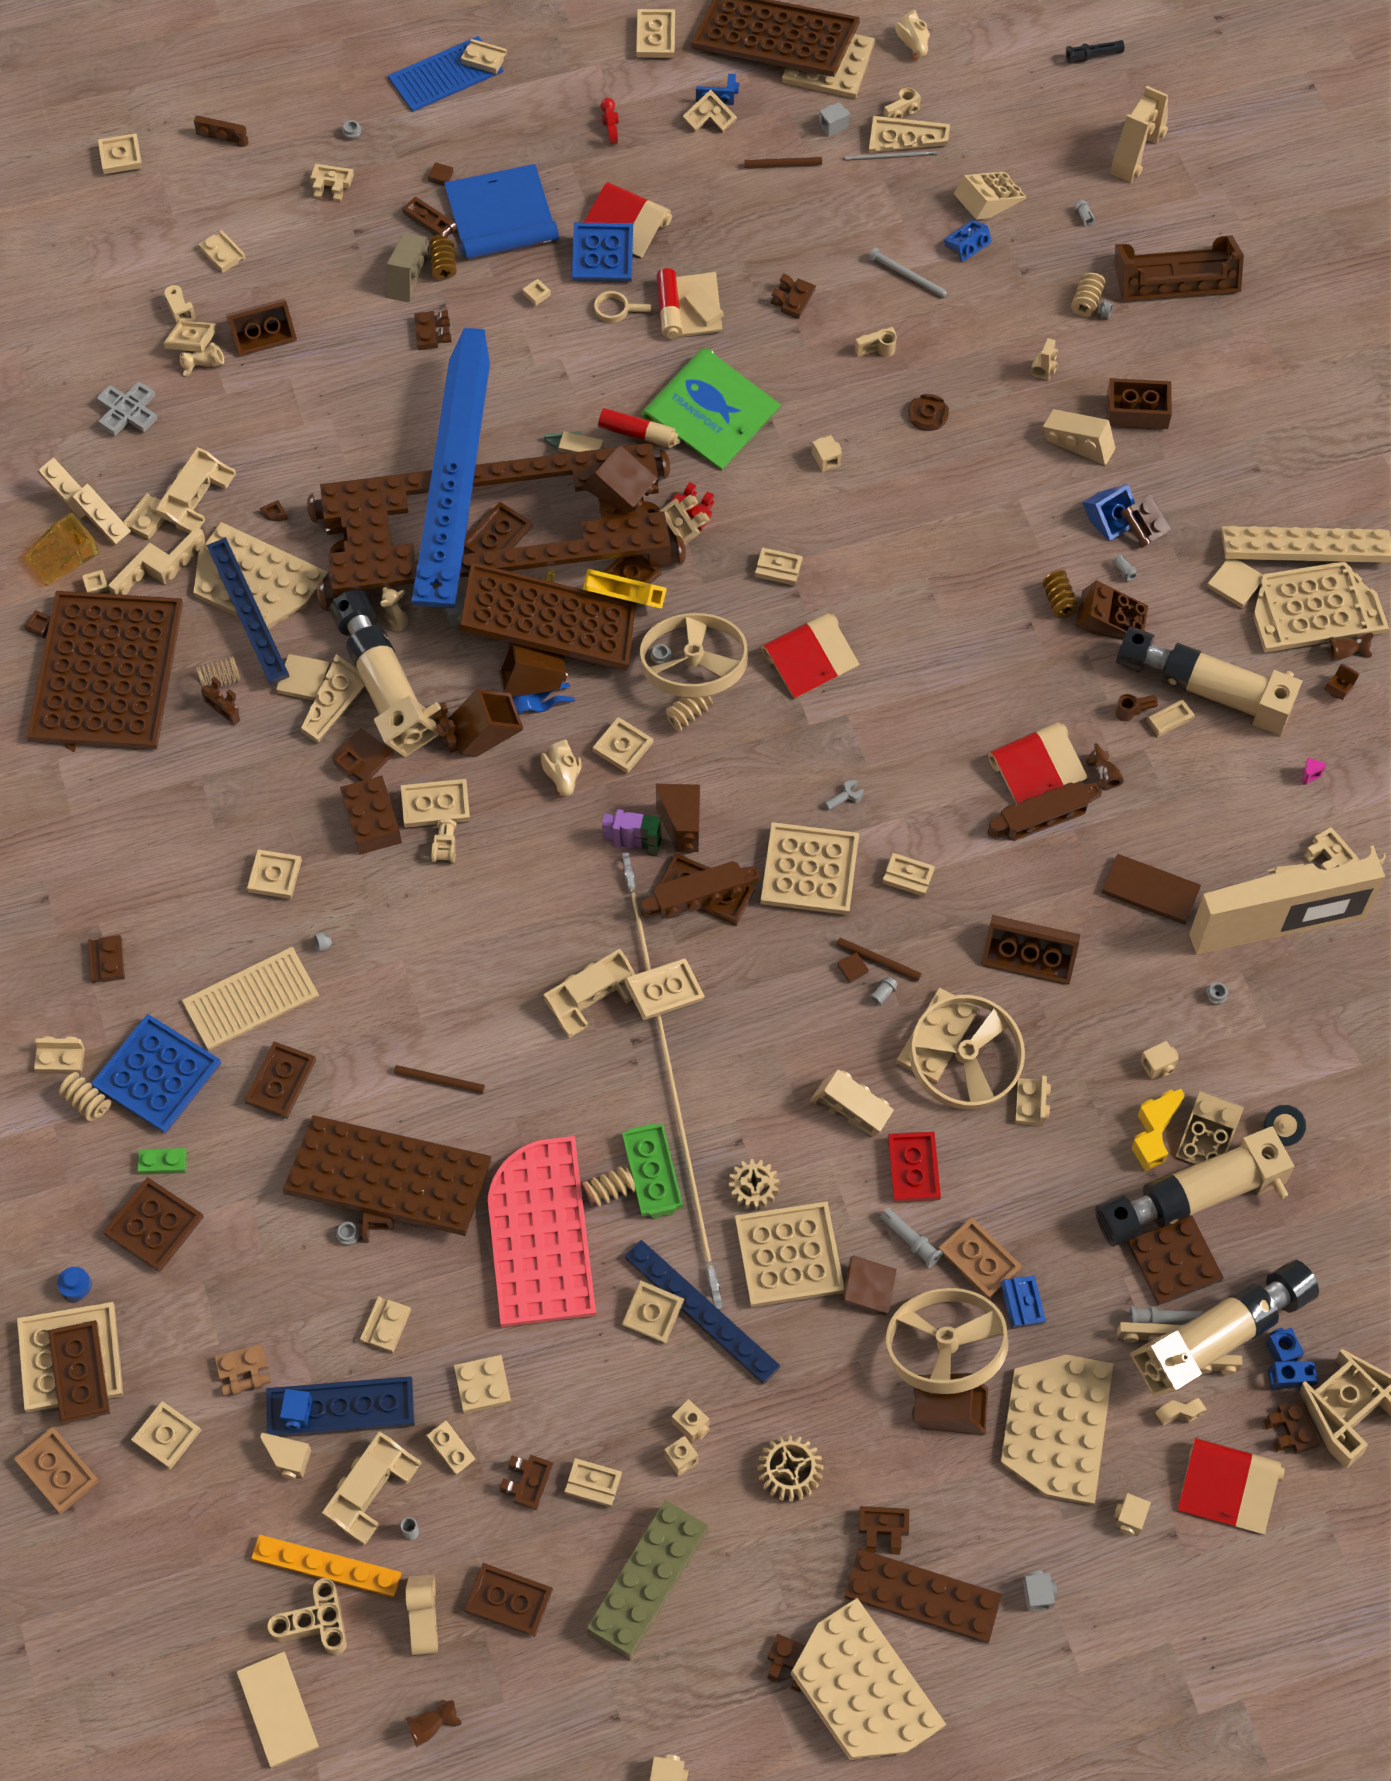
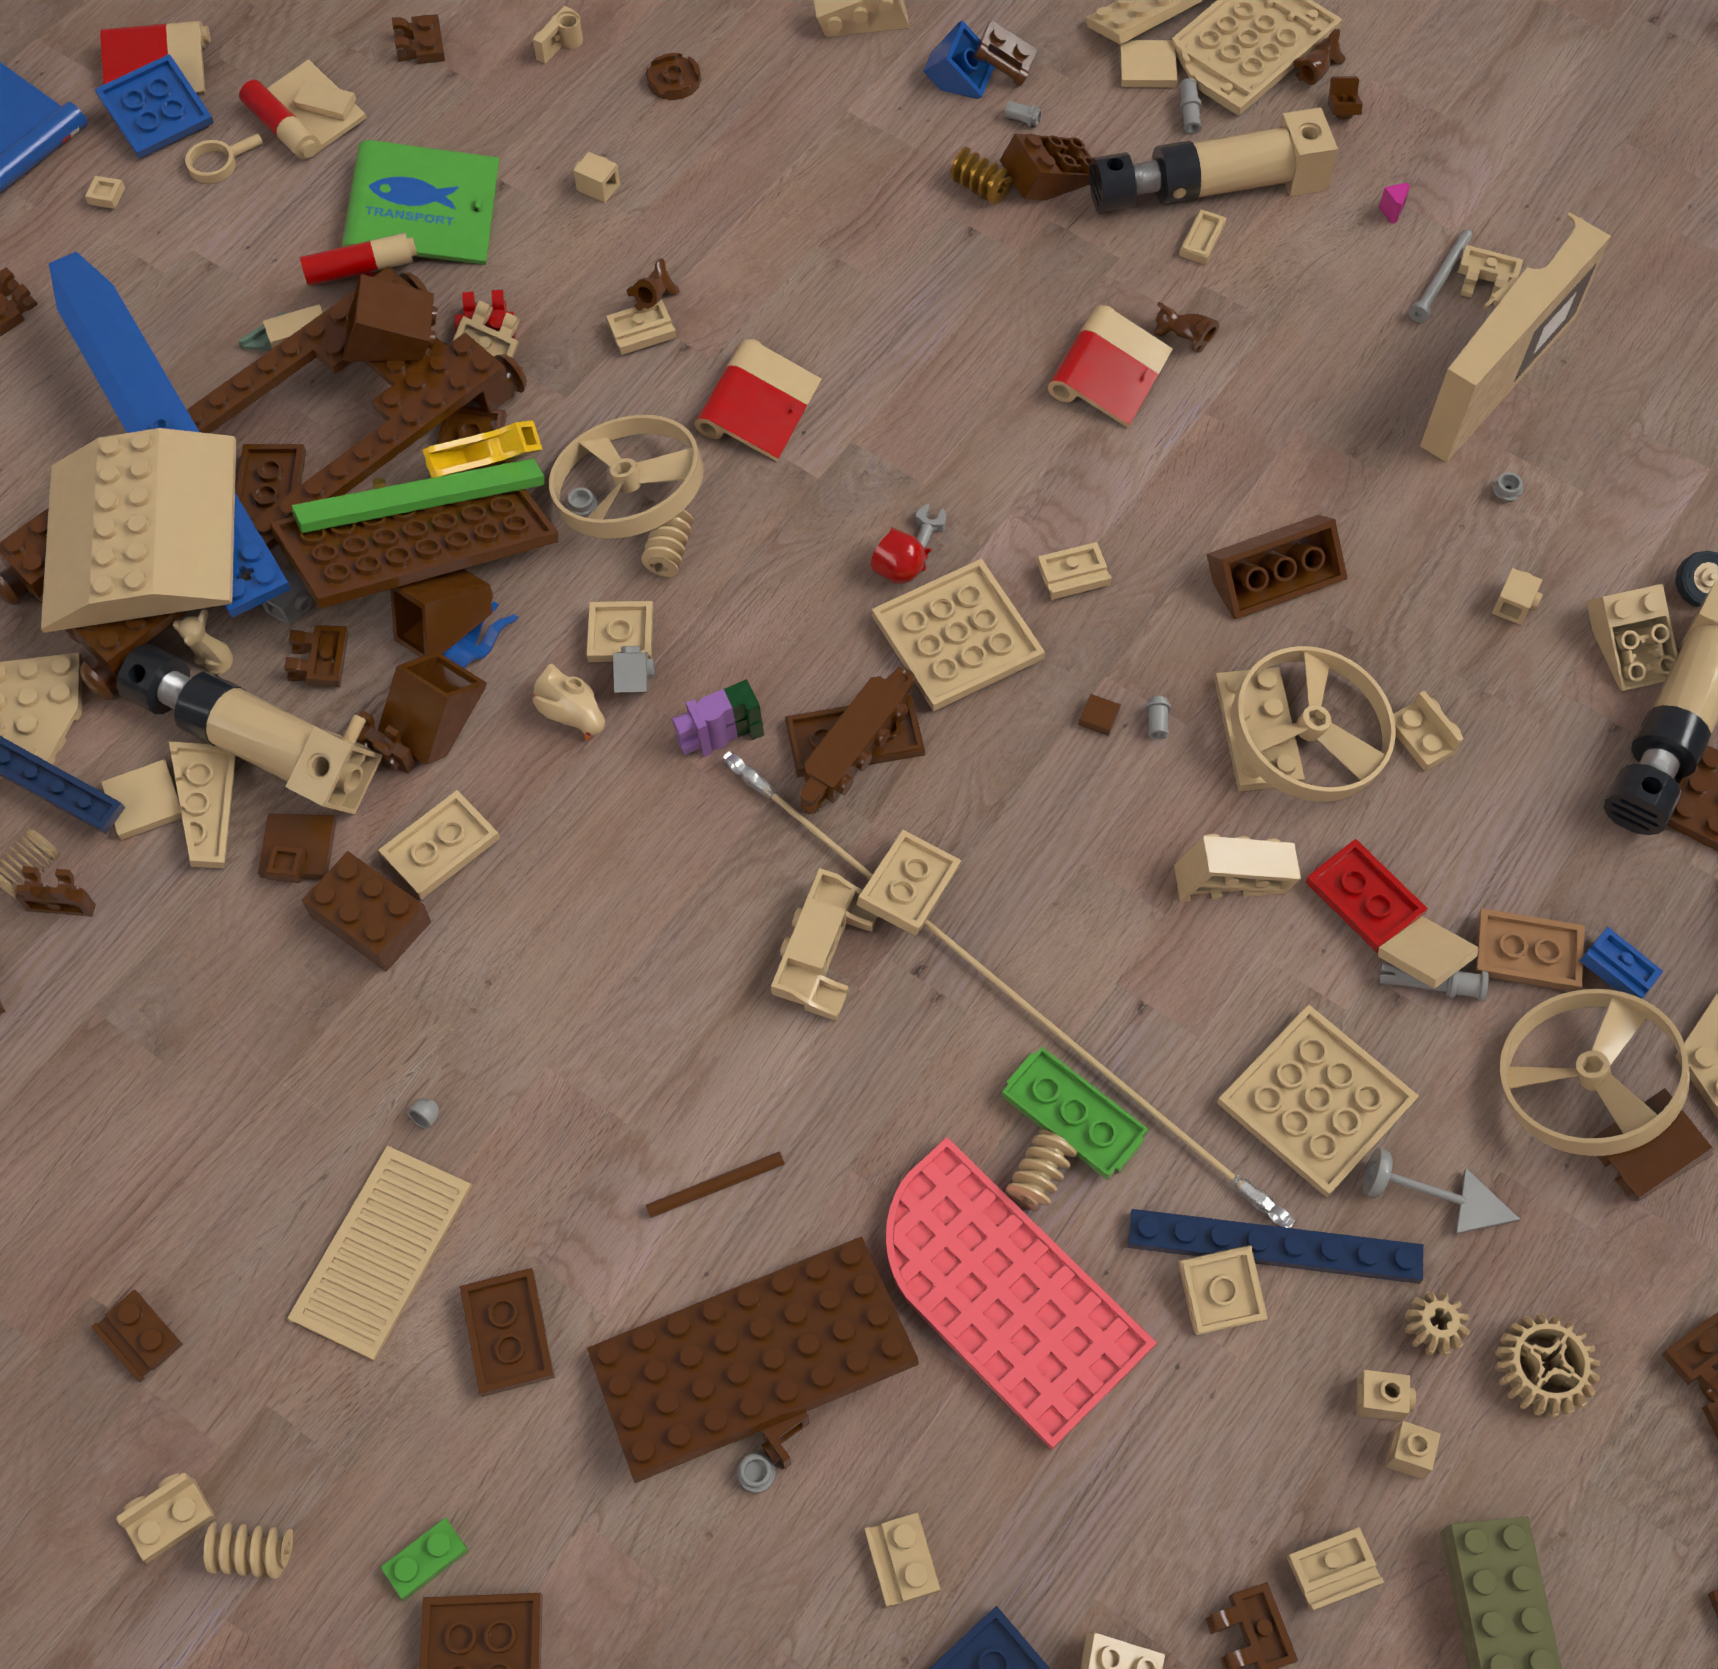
camera: 35 degrees left, 0 degrees up
(156, 1073) = (326, 1444): blue plate -> none
(274, 874) = (292, 1068): tan plate -> none
(399, 523) = (140, 528): none -> tan slope
(444, 843) = (491, 886): tan connector -> none
(455, 656) = (326, 655): none -> reddish brown plate
(482, 1384) = (1089, 1545): tan plate -> none
(567, 595) = (417, 495): none -> bright green tile
(609, 772) = (632, 670): none -> light grey brick
(680, 813) = (766, 660): reddish brown slope -> none
(745, 1185) = (1211, 1058): tan gear -> none
(755, 1414) = (1447, 1314): none -> tan gear
(795, 547) = (650, 290): none -> reddish brown animal
(811, 801) = (899, 557): none -> red helmet
(829, 1367) = (1477, 1204): none -> light grey piece
(869, 1285) = (1440, 1071): reddish brown tile -> none
(879, 959) = (1120, 686): reddish brown bar -> none
(917, 1218) = (1428, 952): none -> tan tile
(1044, 811) = (1161, 410): reddish brown hinge -> none
(1135, 705) = (1156, 245): reddish brown axle -> none
(1151, 889) = (1342, 422): reddish brown tile -> none
(1155, 1118) = (1573, 664): yellow arch -> none
(1236, 627) = (1190, 106): none -> light grey pin
(1265, 850) = (1421, 310): none -> light grey bar

